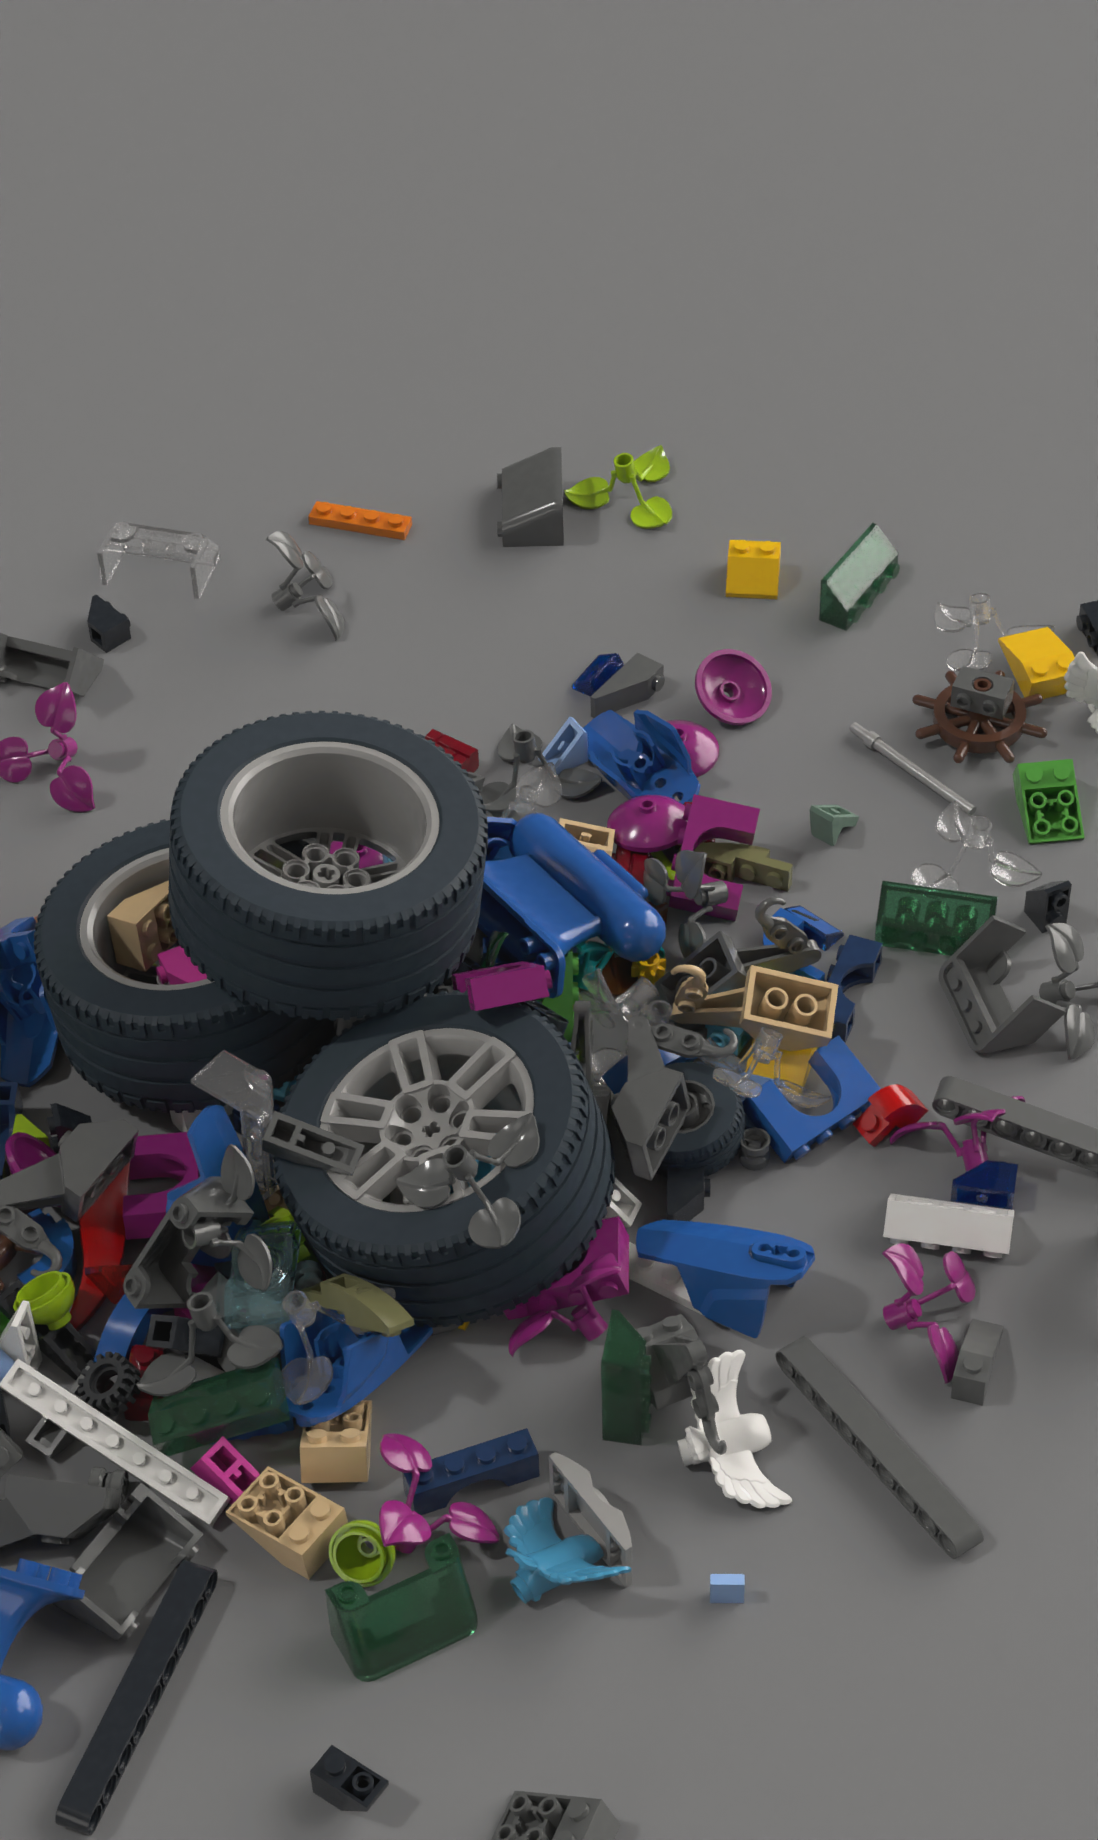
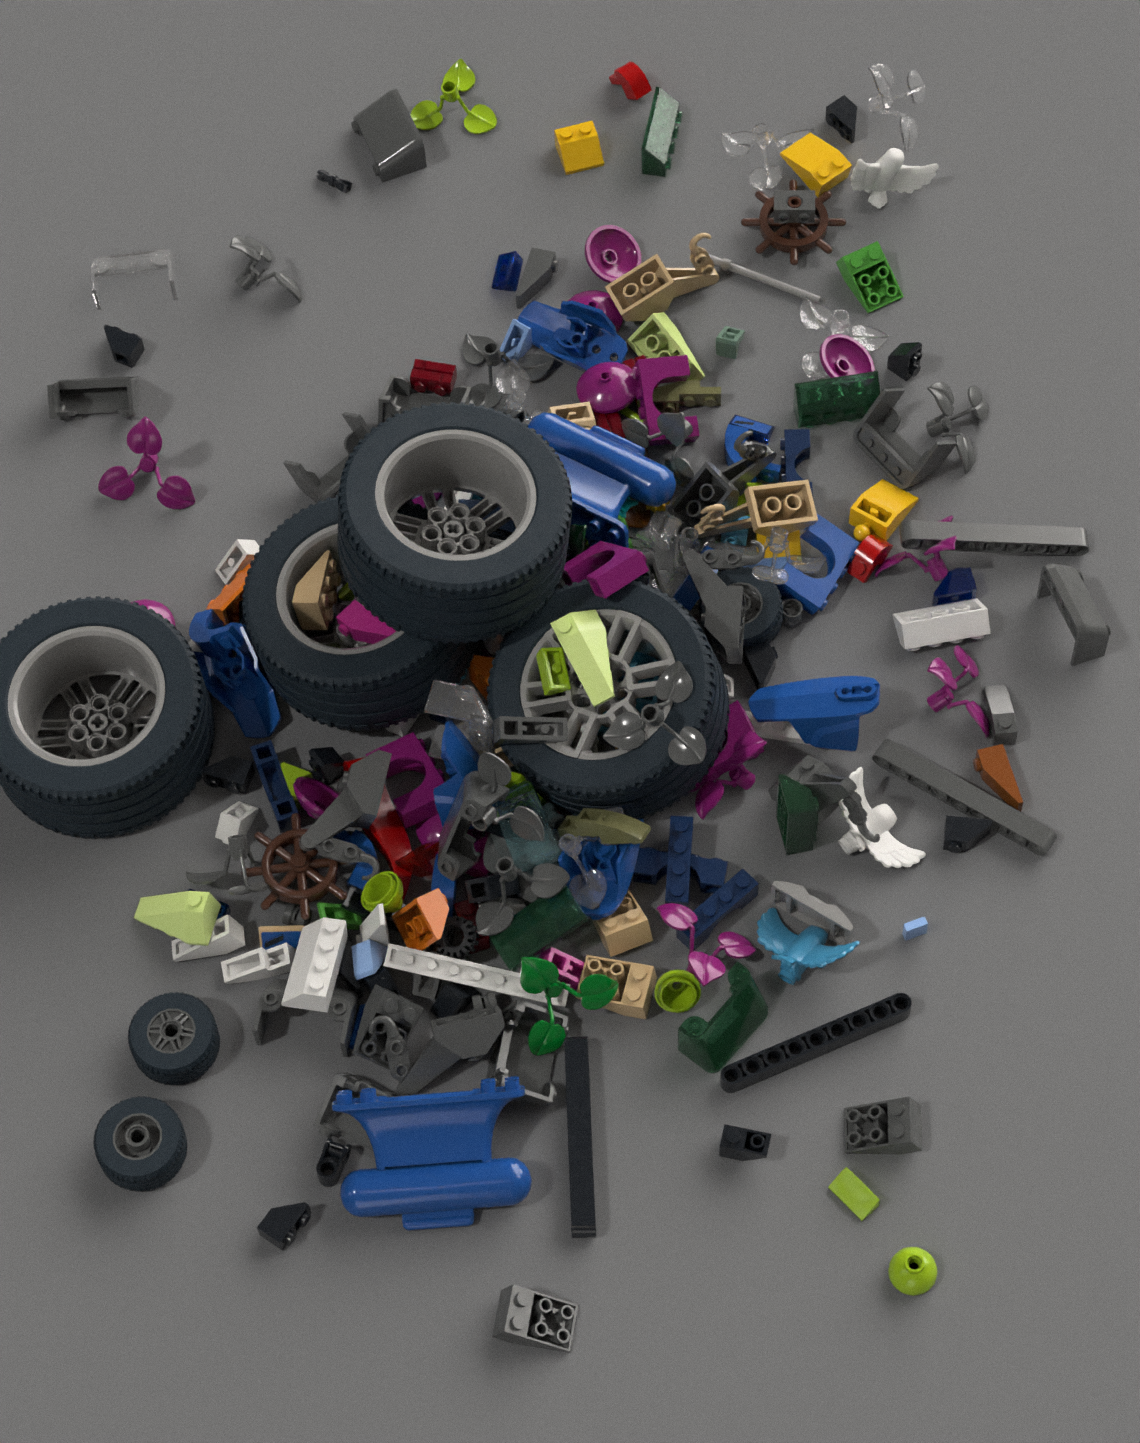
camera: 20 degrees left, 15 degrees up
(72, 1462) = (453, 999): none -> black slope
(75, 1339) = (422, 920): none -> orange slope
(175, 1454) = (542, 975): none -> green plant
(360, 520) = (265, 193): orange plate -> none
(378, 1085) = (553, 670): none -> lime slope
(418, 1390) = (708, 873): none -> dark blue arch
(427, 1068) = (586, 647): none -> yellowish green wedge
(446, 528) = (333, 181): none -> black piece
(461, 1369) = (679, 860): none -> dark blue arch
(533, 1696) = (808, 1050): none -> black beam
(750, 785) = (661, 338): none -> yellowish green wedge
(761, 731) = (653, 286): none -> tan slope
(852, 516) = (632, 80): none -> red brick
(856, 1490) = (964, 832): none -> black slope
(925, 1058) = (880, 510): none -> yellow slope
(936, 1430) = (998, 775): none -> dark orange slope
(969, 871) = (844, 356): none -> magenta dish

